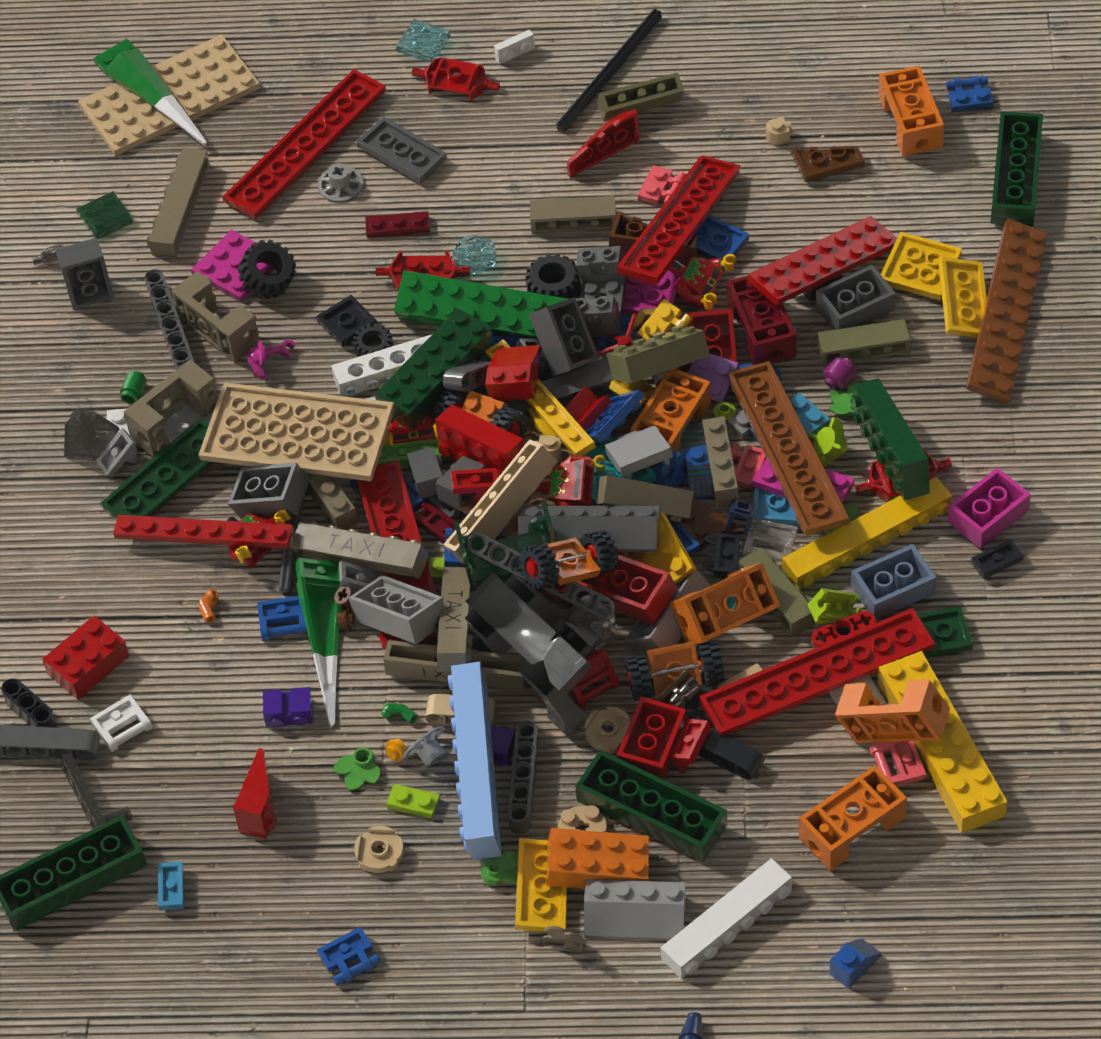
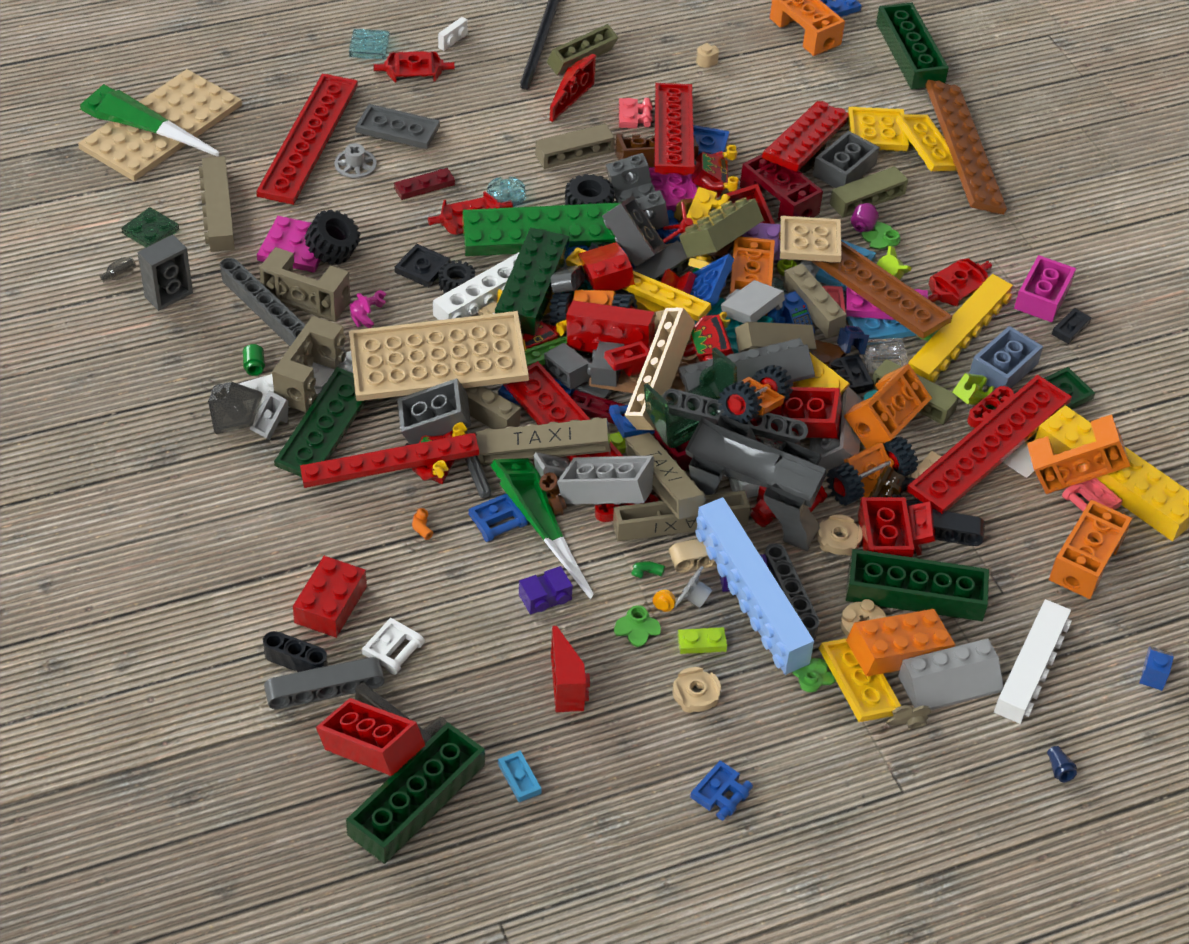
camera: 30 degrees left, 5 degrees down
(47, 808) = (370, 736): none -> red brick
(750, 389) = (810, 239): none -> tan plate
(826, 162) = (757, 71): reddish brown wing -> none
(891, 439) = (946, 251): dark green brick -> none

